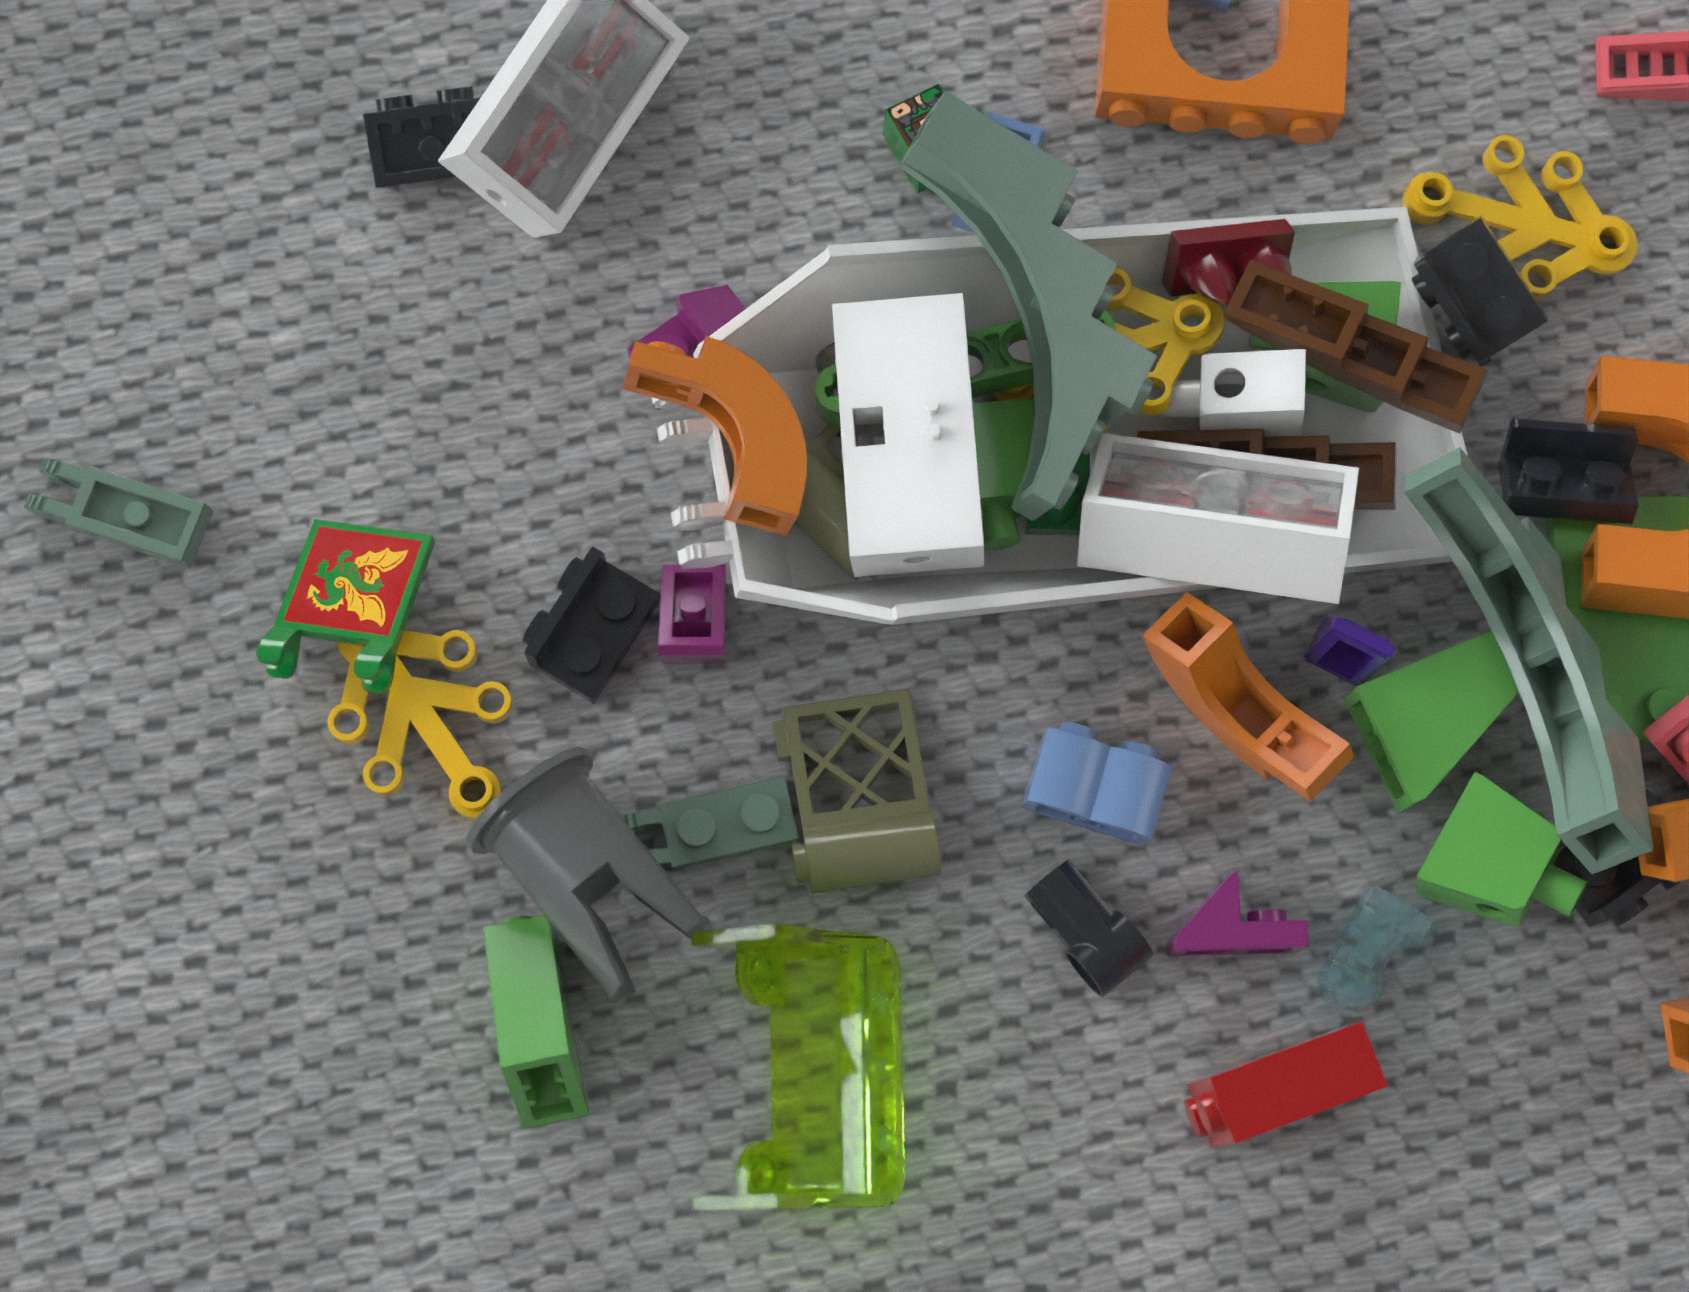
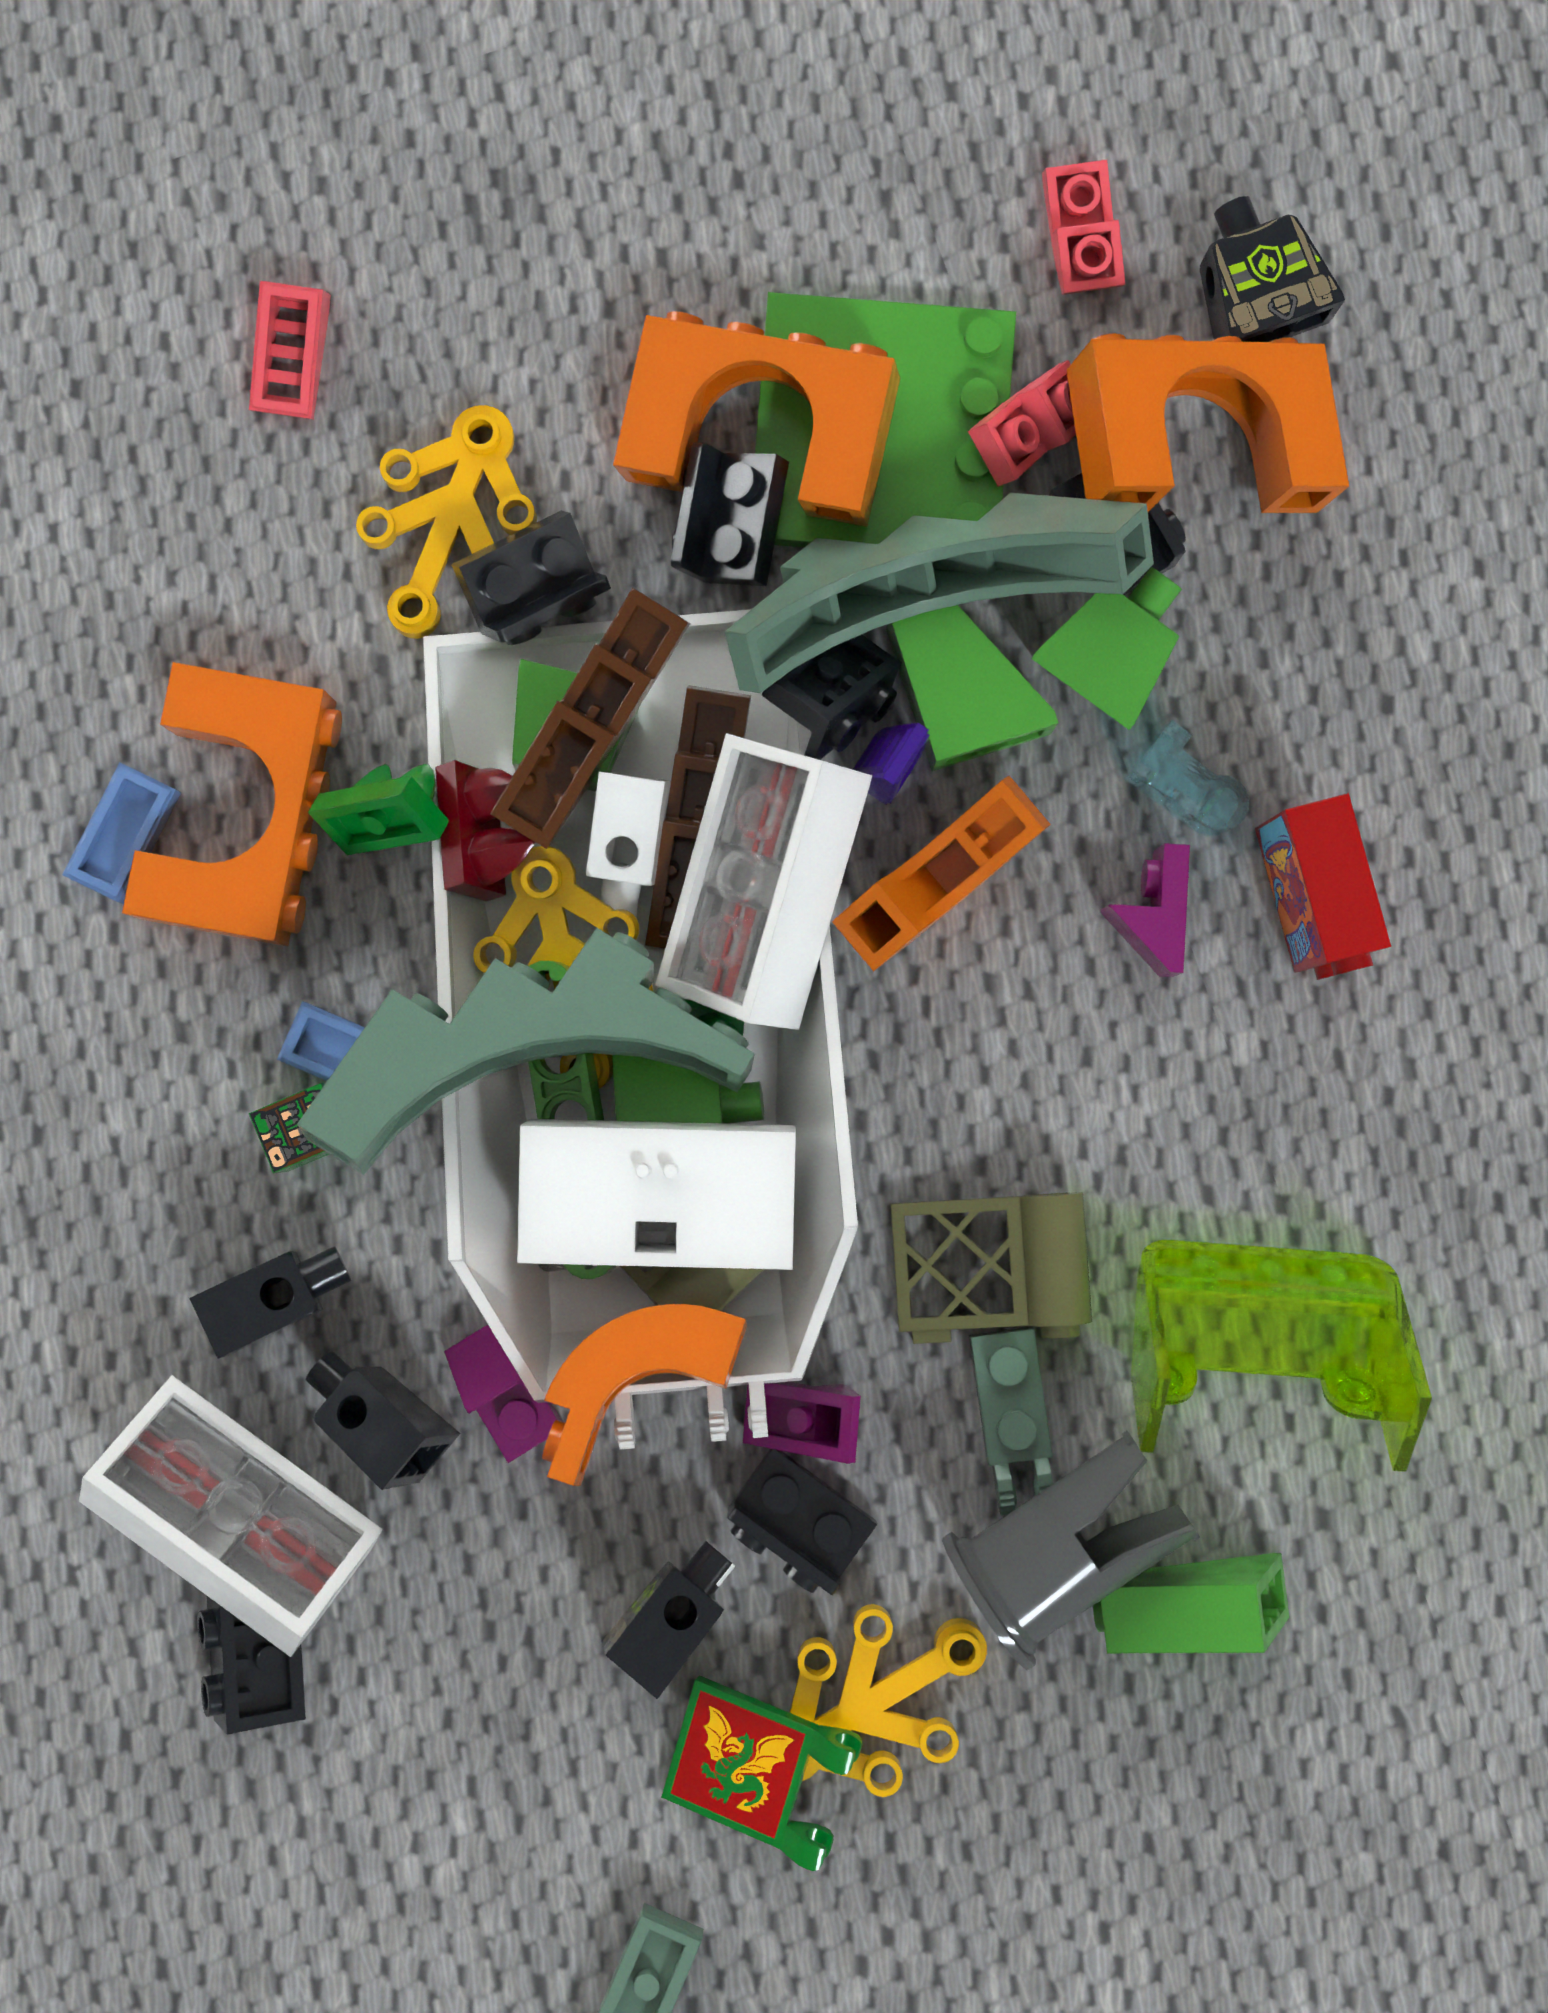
camera: 80 degrees left, 10 degrees up
(472, 479) = (654, 1647): none -> black torso
(657, 227) = (378, 1422): none -> black torso
(755, 93) = (240, 1310): none -> black torso
(1097, 784) = (1005, 1029): medium blue brick -> none
(1098, 942) = (1158, 1045): black piece -> none
(1236, 174) = (381, 811): none -> green tile
(1412, 584) = (837, 693): none -> black bracket

